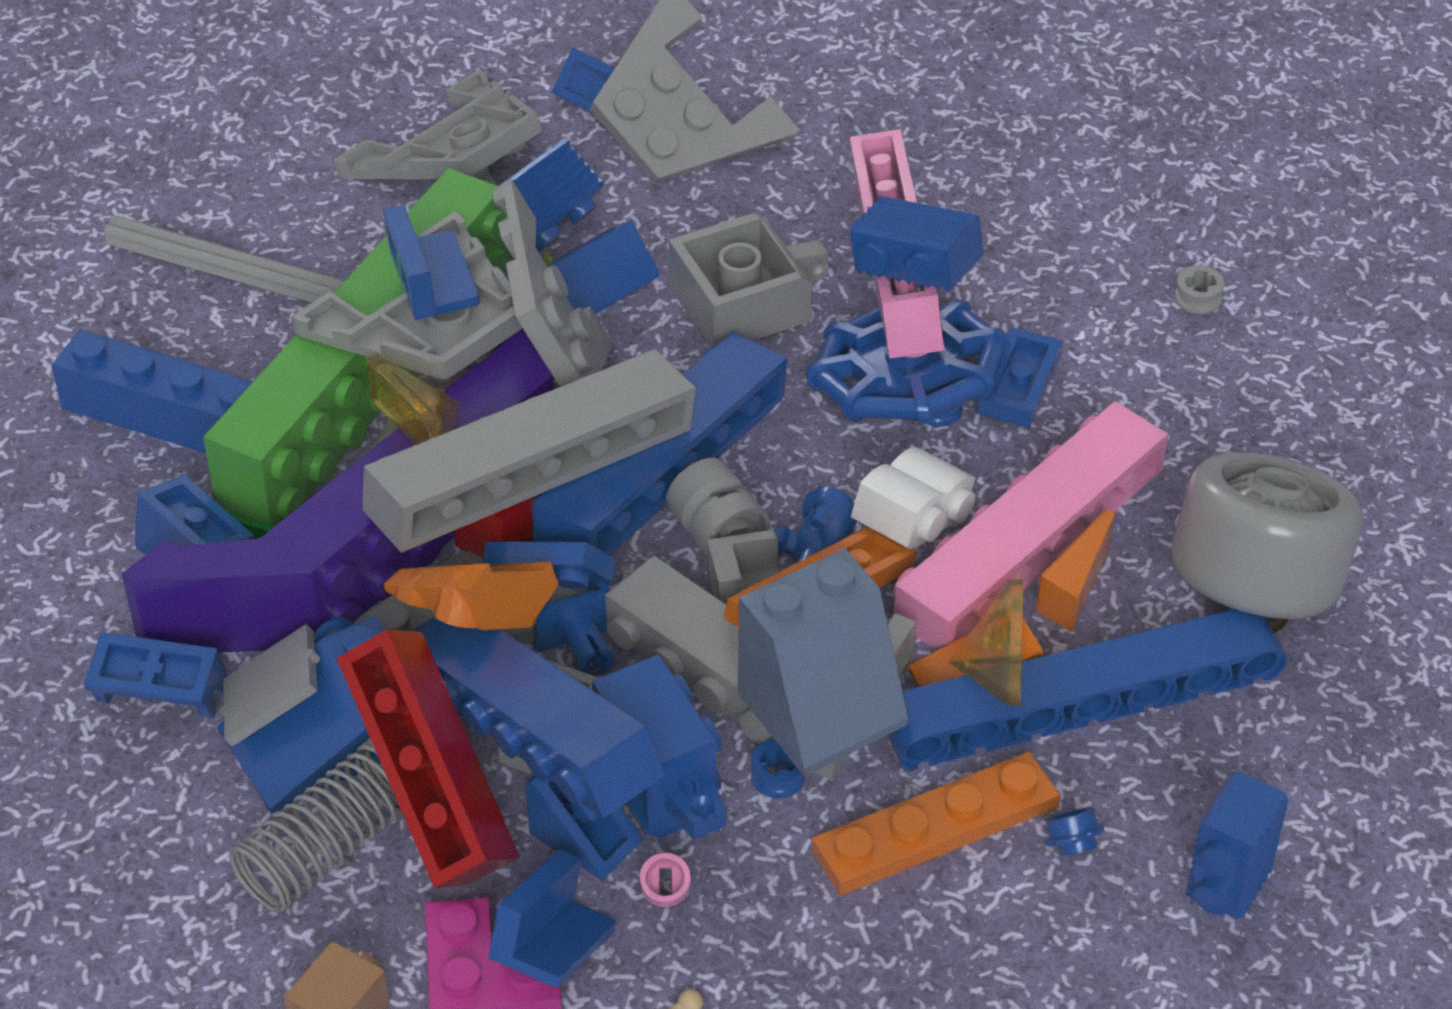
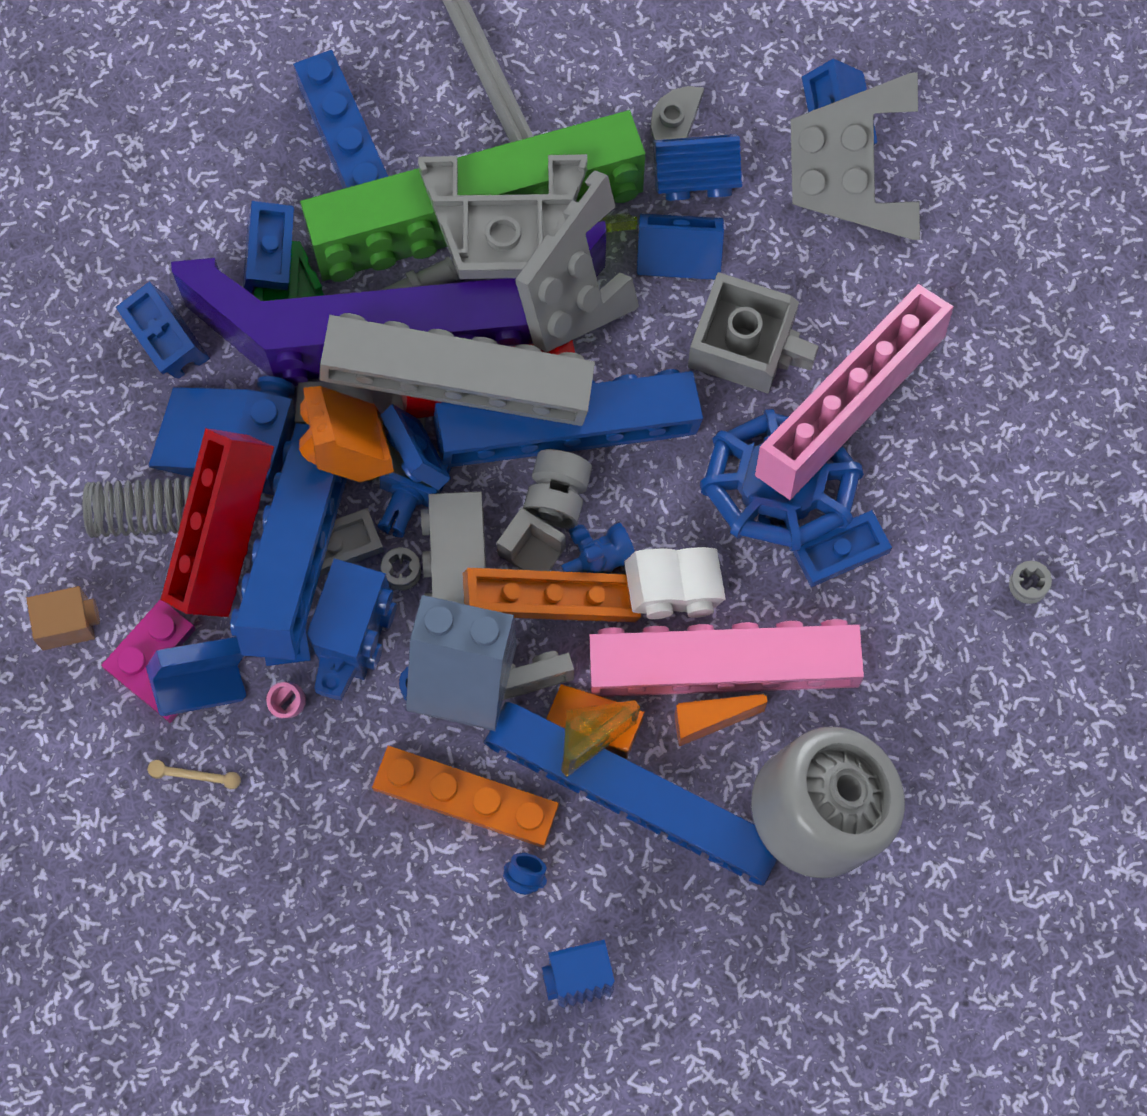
camera: 45 degrees right, 25 degrees up
(269, 685) = (204, 392): light grey piece -> none
(410, 402) = (423, 287): clear yellow slope -> none
(429, 267) = (517, 190): blue panel -> none
(465, 141) = (696, 80): light grey wing -> none
(916, 242) = (817, 424): blue brick -> none

